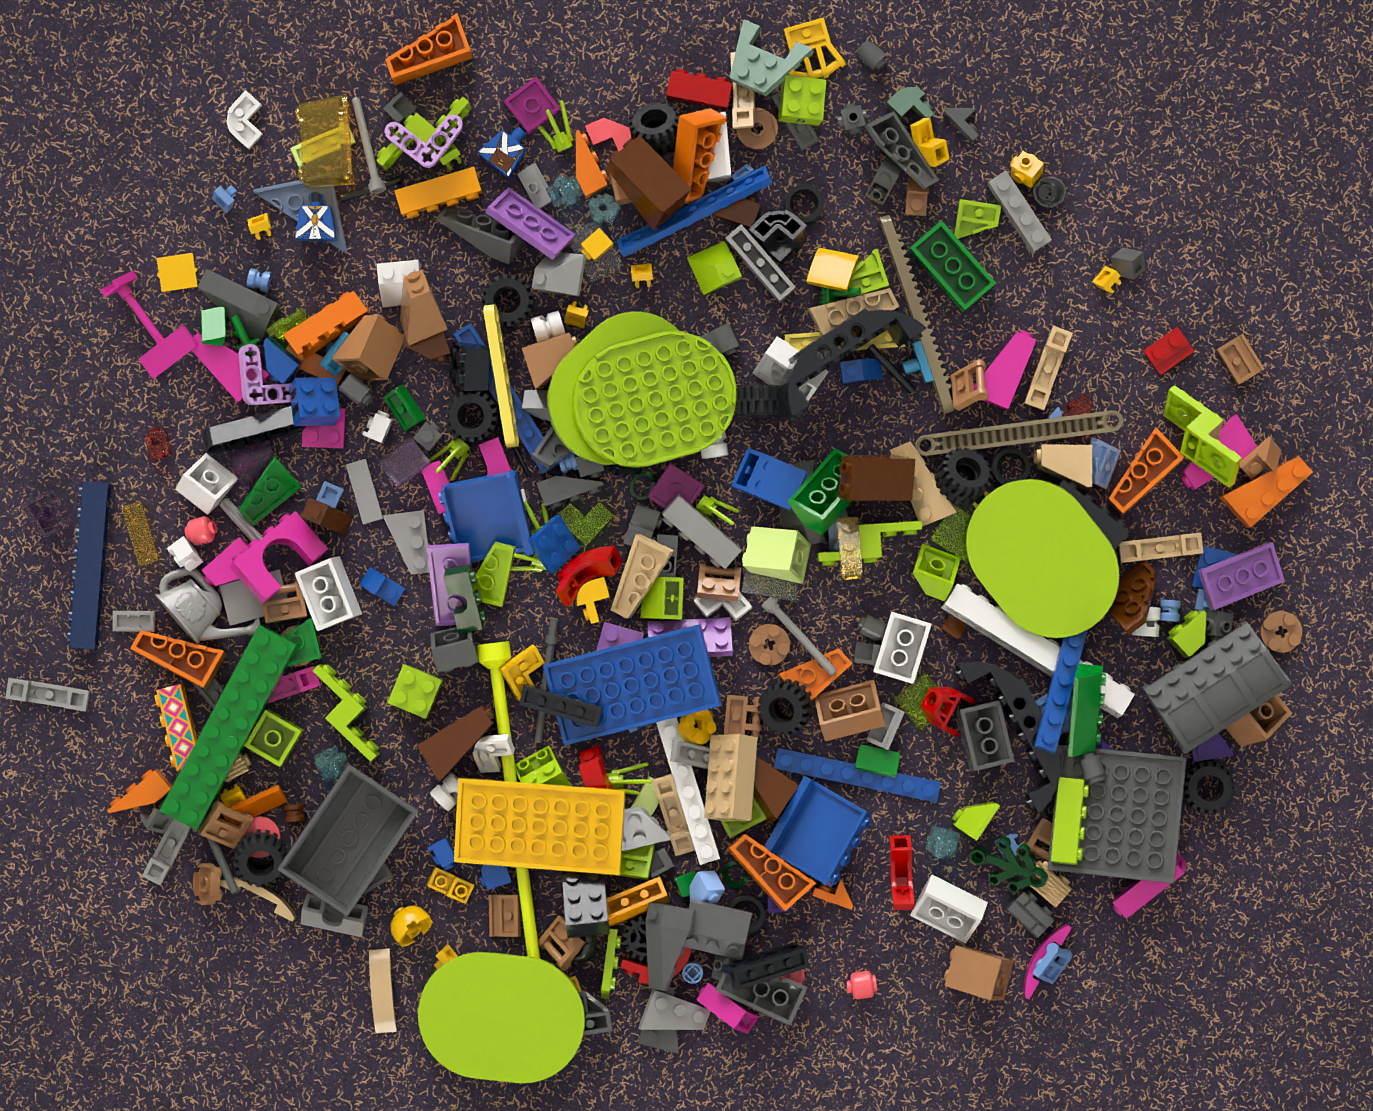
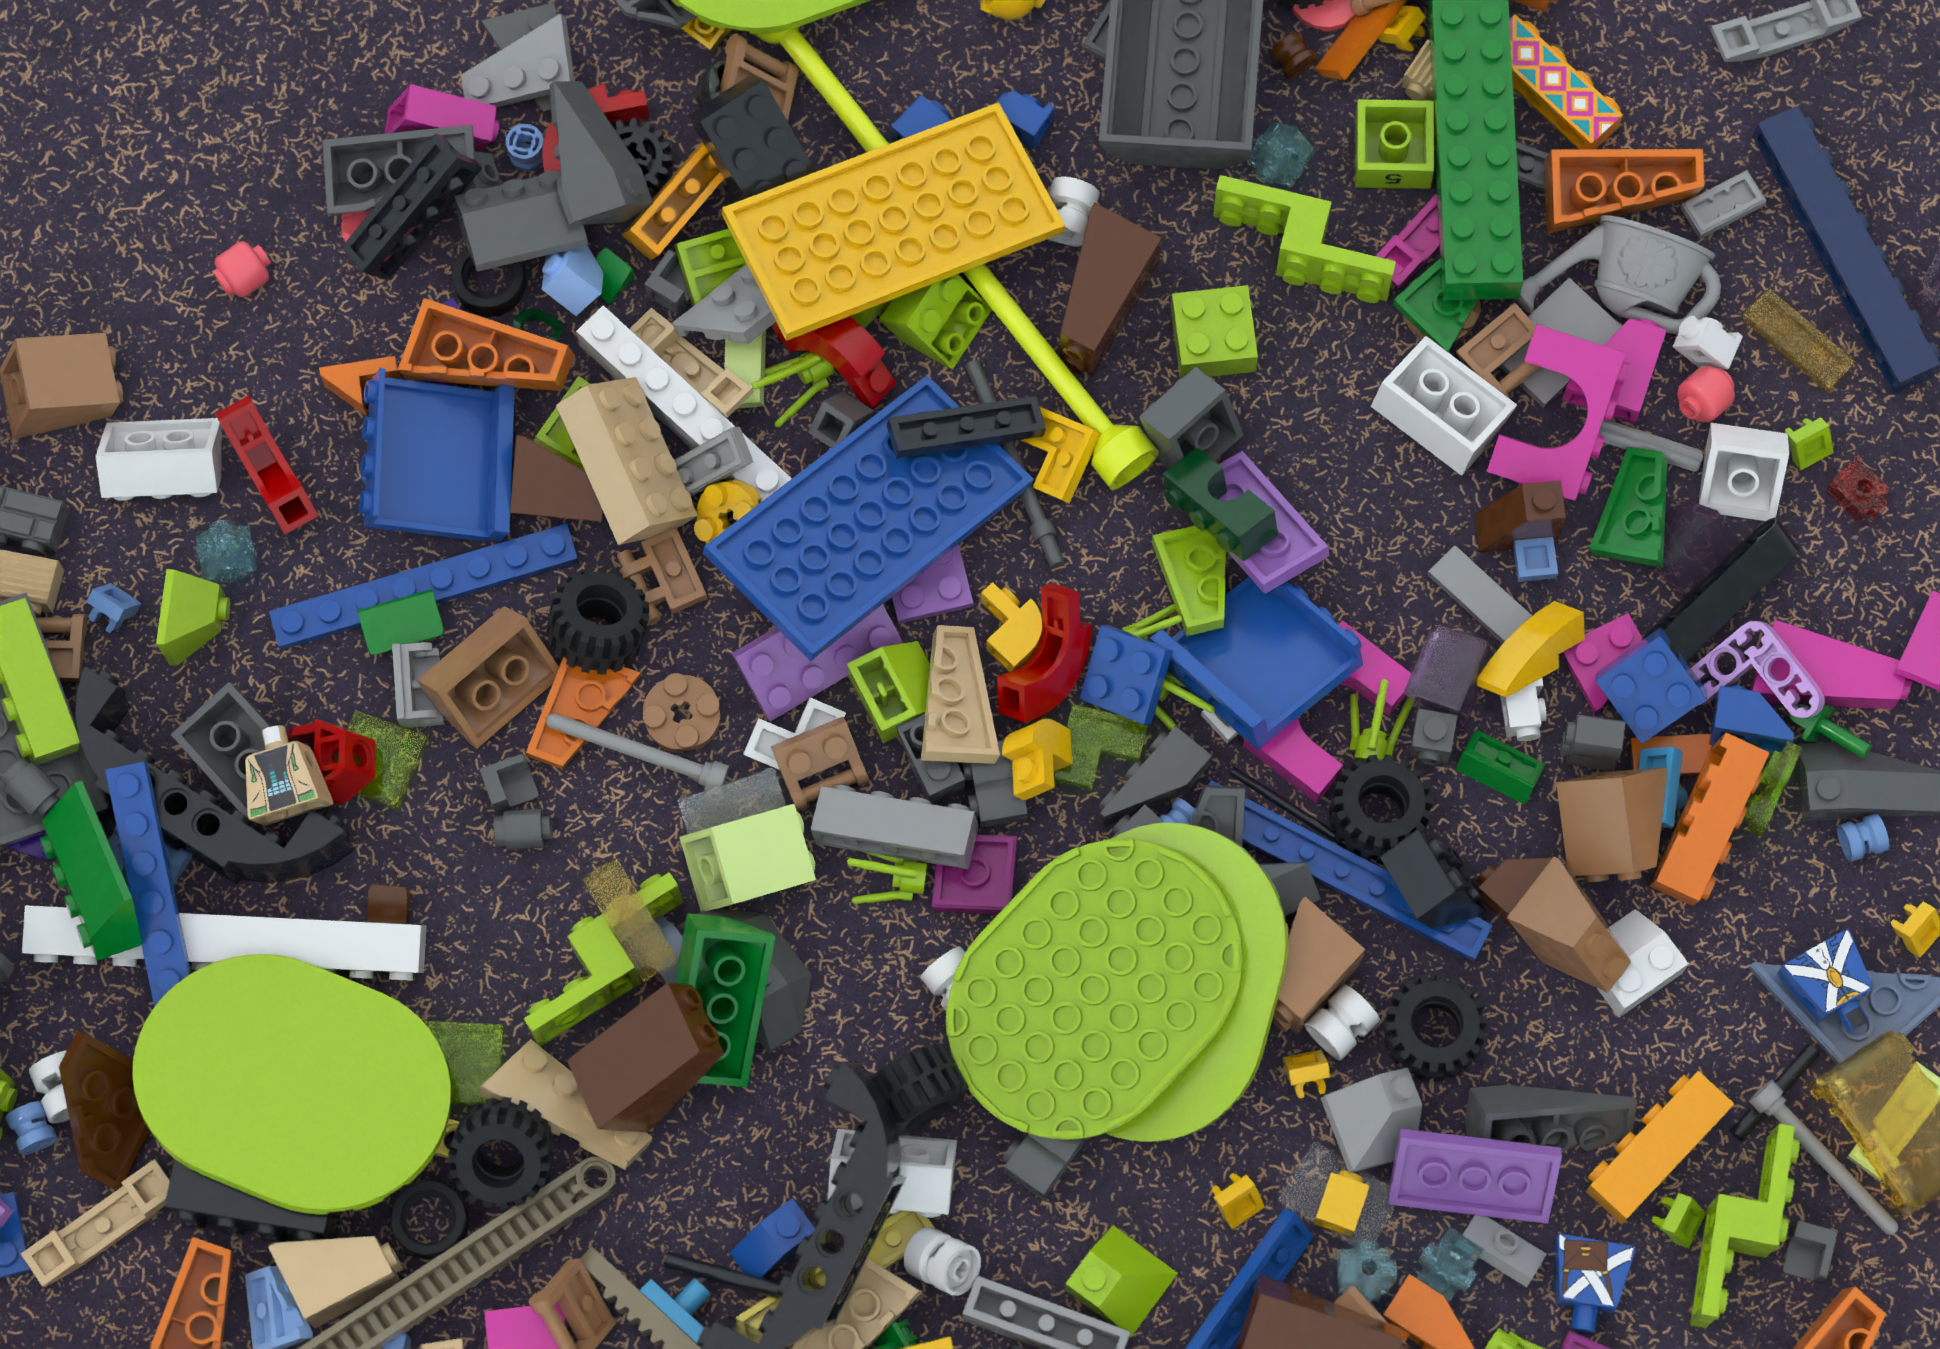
camera: 150 degrees right, 15 degrees down
(166, 479) = (1810, 442): none -> lime tile
(213, 326) = (1890, 717): slope -> none
(358, 450) = (1533, 649): none -> yellow slope
(382, 586) = (1367, 467): blue slope -> none
(411, 539) = (1365, 567): light grey wing -> none
(417, 153) = (1732, 1189): lavender beam -> none
(450, 885) = (984, 81): yellow slope -> none
(489, 748) = (1038, 301): white plate -> none
(501, 376) = (1372, 892): light yellow beam -> none
(504, 915) = (873, 78): medium nougat plate -> none
(611, 963) = (664, 90): lime wing -> none
(617, 744) = (839, 418): none -> dark grey brick
(618, 529) = (1036, 755): none -> yellow brick
(645, 473) = (1033, 869): dark green piece -> none
(768, 478) = (830, 969): blue slope -> none
(790, 318) = (942, 1261): none -> white wheel
(902, 647) = (455, 819): white slope -> none
(936, 571) = (466, 977): lime slope -> none
(973, 705) = (283, 779): none -> torso
(1012, 866) = (46, 570): dark green plant -> none

